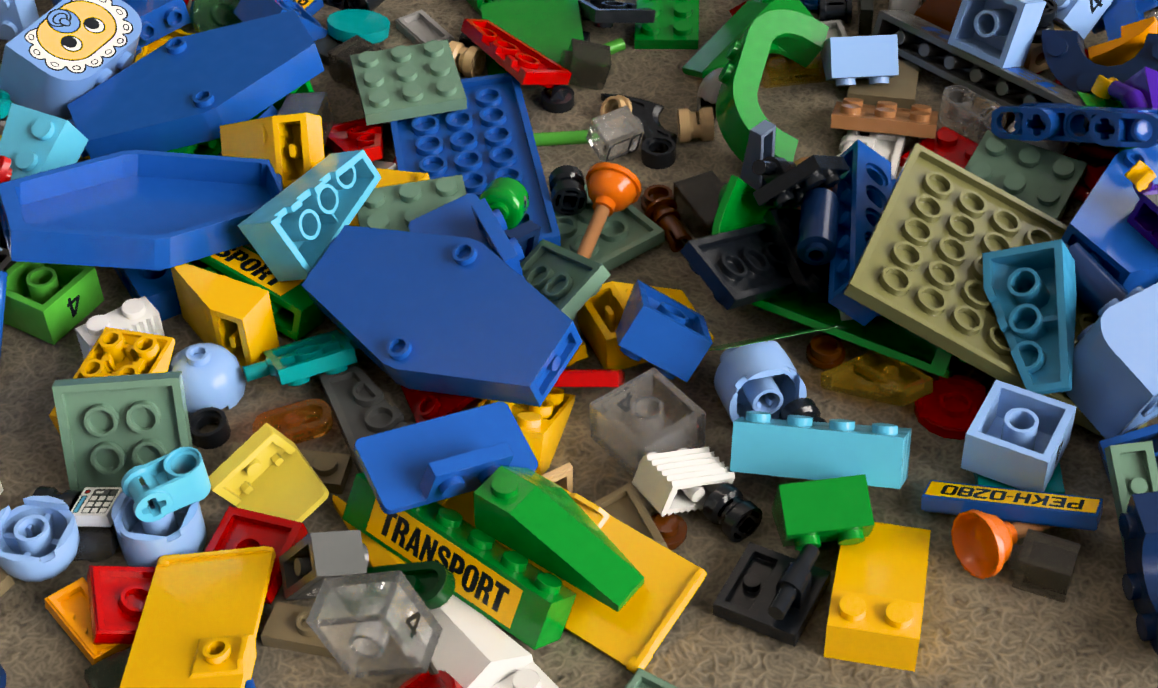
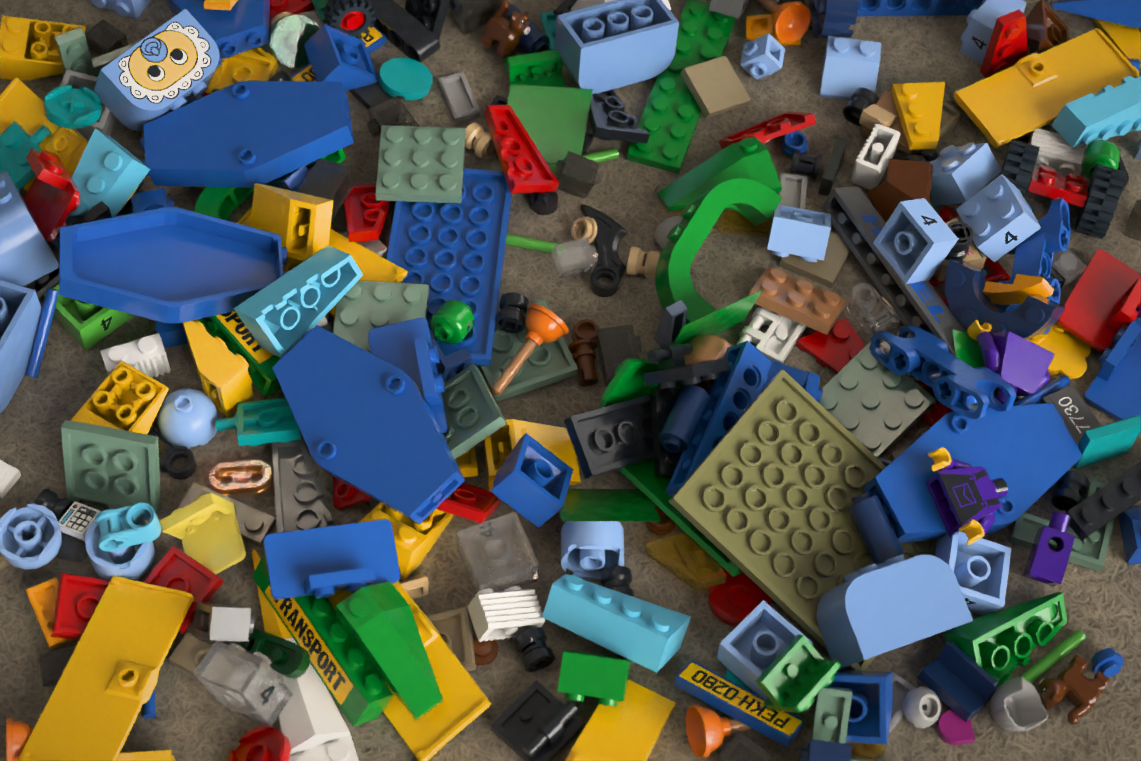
camera: 10 degrees right, 15 degrees up
(816, 132) = (718, 320): none -> green sticker
(1036, 310) = (817, 547): dark azure wedge -> none
(1078, 441) = (796, 677): none -> green bracket

